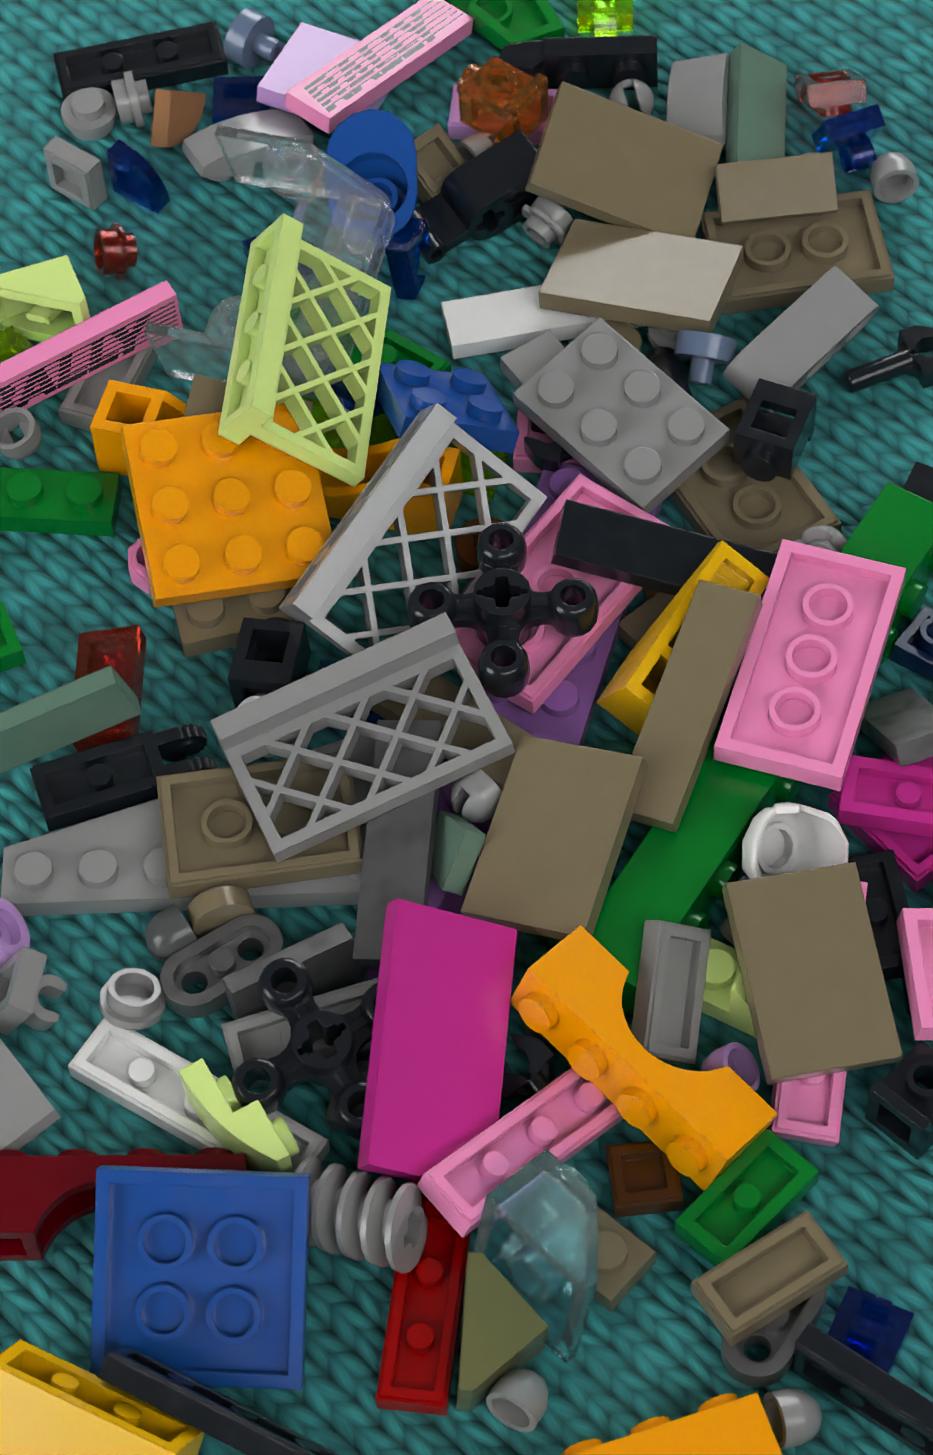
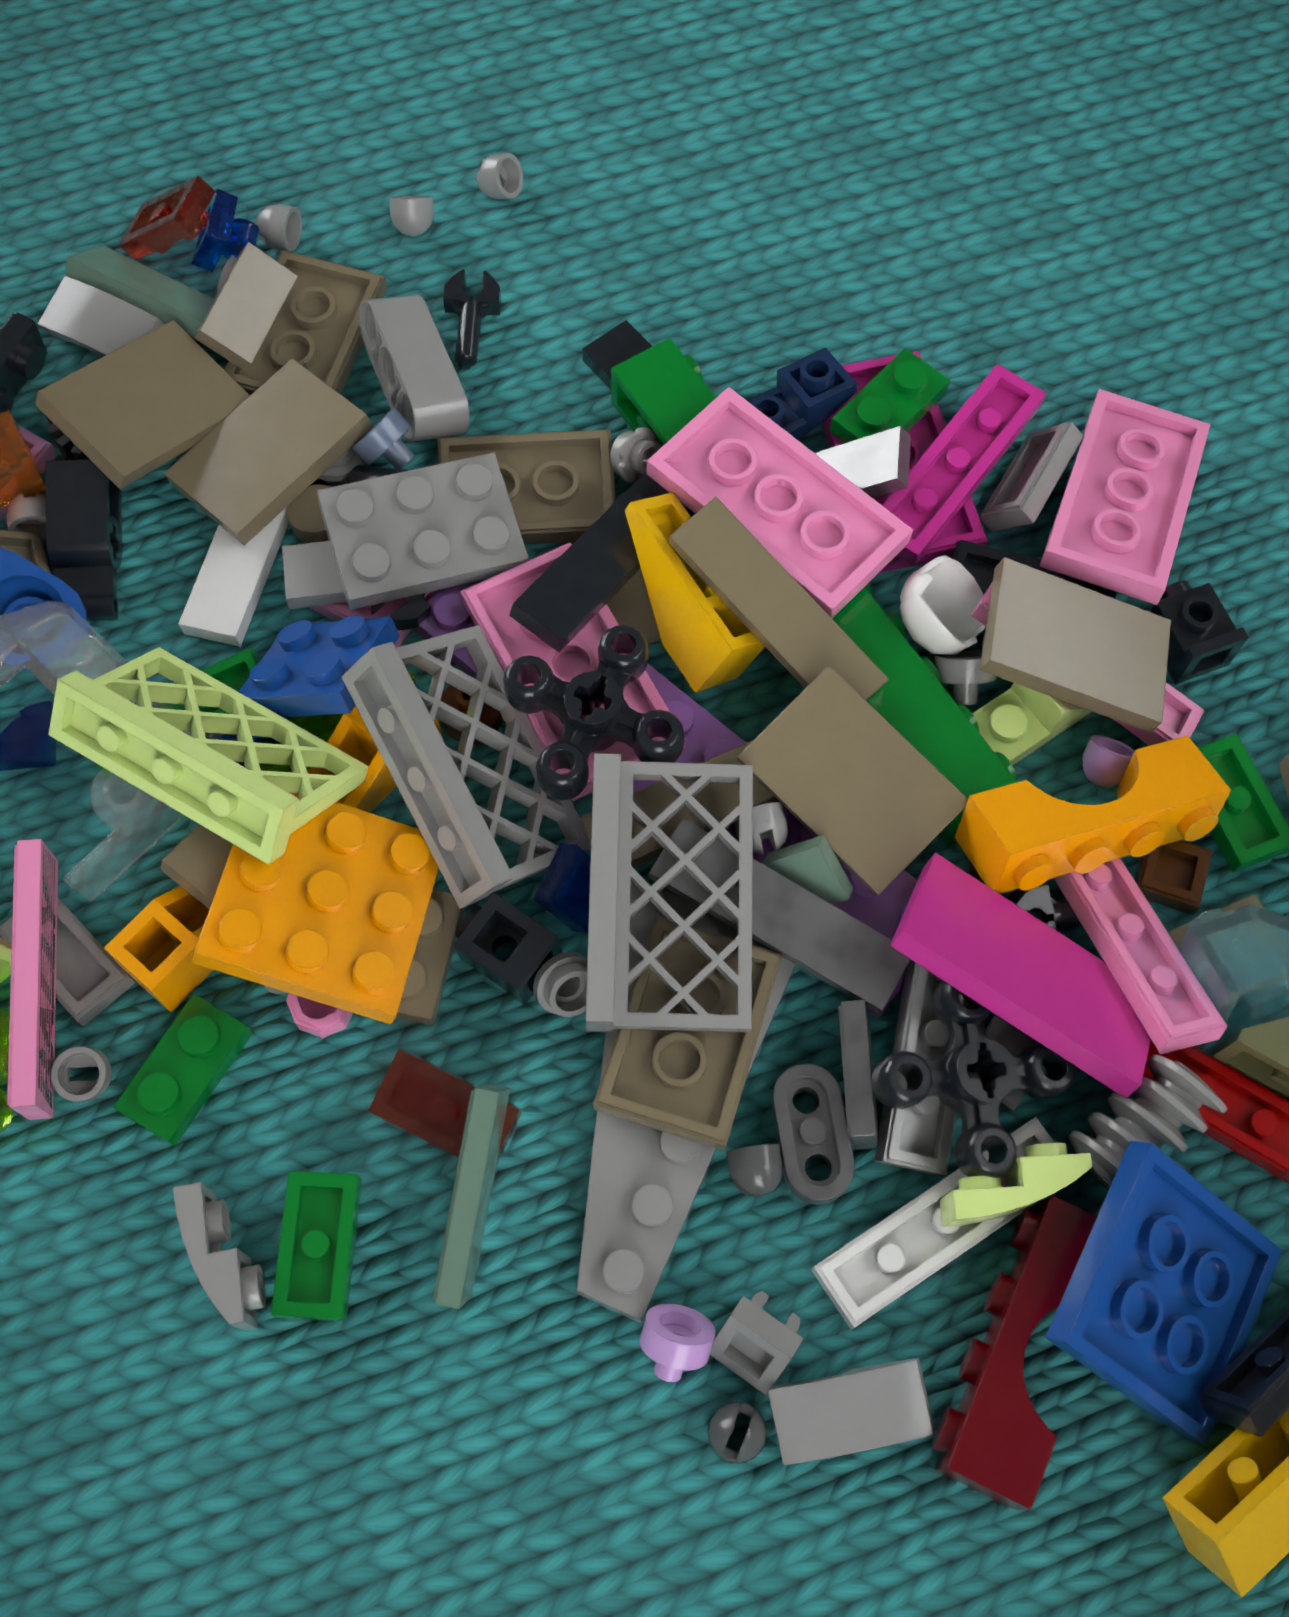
camera: 70 degrees left, 10 degrees up
(115, 774) = (549, 1148): black hinge -> none
(132, 999) = (811, 1235): light grey plate -> none
(217, 907) = (757, 1110): dark tan tile -> none
(404, 258) = (112, 628): clear blue tile -> none
(546, 222) = (146, 499): light grey plate -> none
(642, 93) = (45, 375): light grey hinge -> none
(670, 990) = (1024, 756): light grey tile -> none
(769, 442) = (509, 422): black brick -> none

